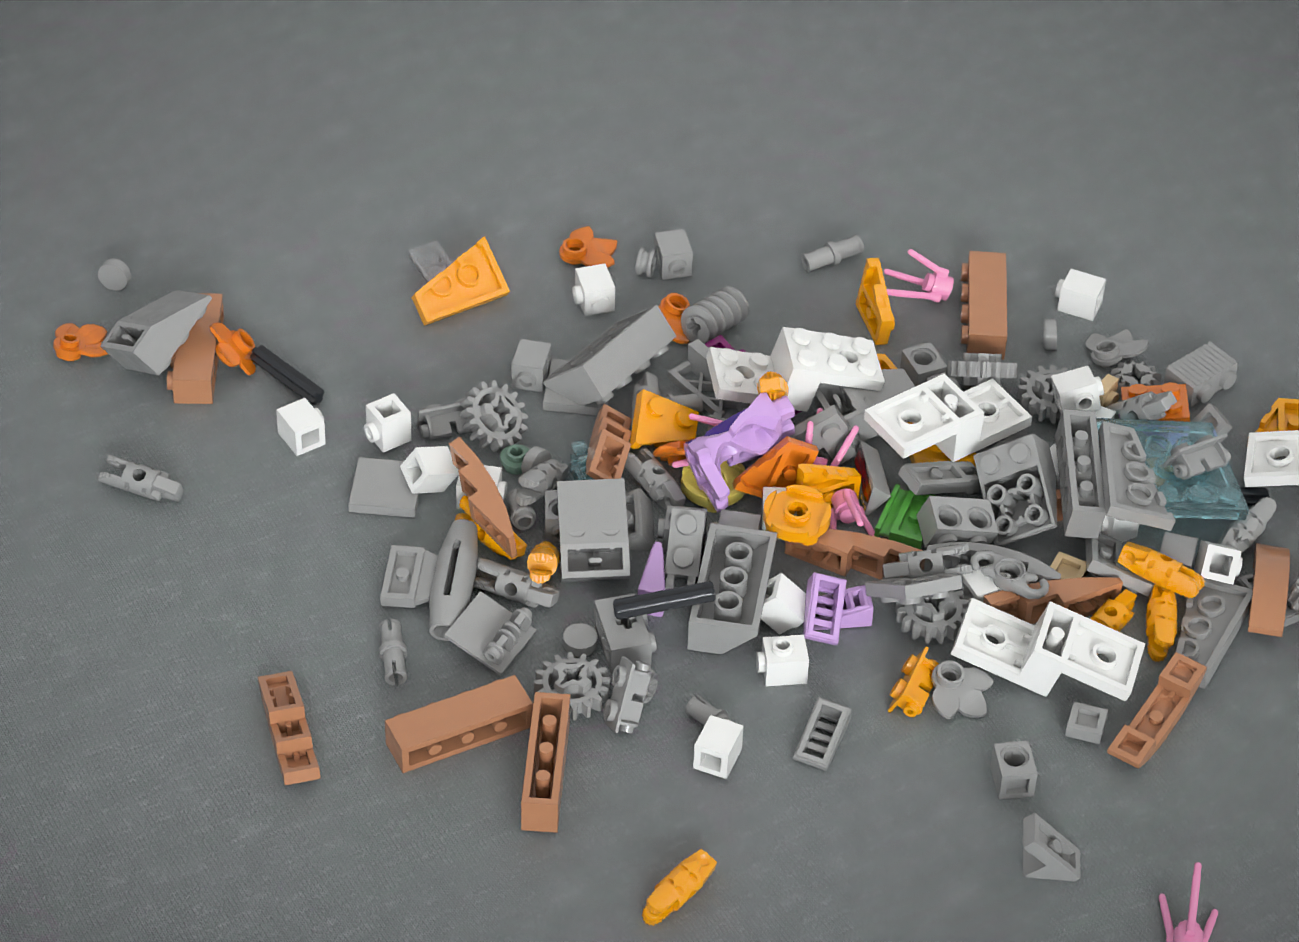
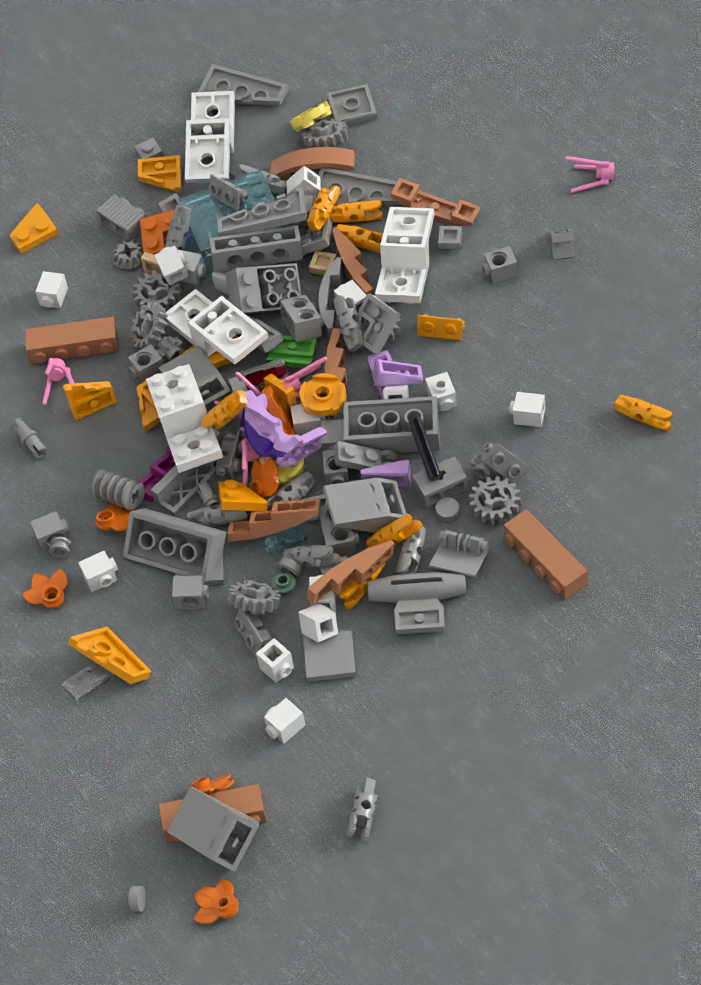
camera: 90 degrees left, 10 degrees up
(287, 374) = (226, 749): black axle -> none
(288, 728) = (571, 654): nougat slope -> none
(393, 651) = (488, 610): light grey pin -> none
(545, 762) = (571, 494): nougat brick -> none
(701, 710) = (501, 420): light grey pin -> none
(831, 711) = (488, 357): light grey slope -> none
(962, 693) = (440, 303): light grey plate -> none
(1016, 585) = (356, 272): light grey piece -> none
(1050, 334) = (95, 301): light grey tile -> none
(1111, 350) = (97, 268): light grey plate -> none
(1204, 295) = (33, 230): none -> light orange wing

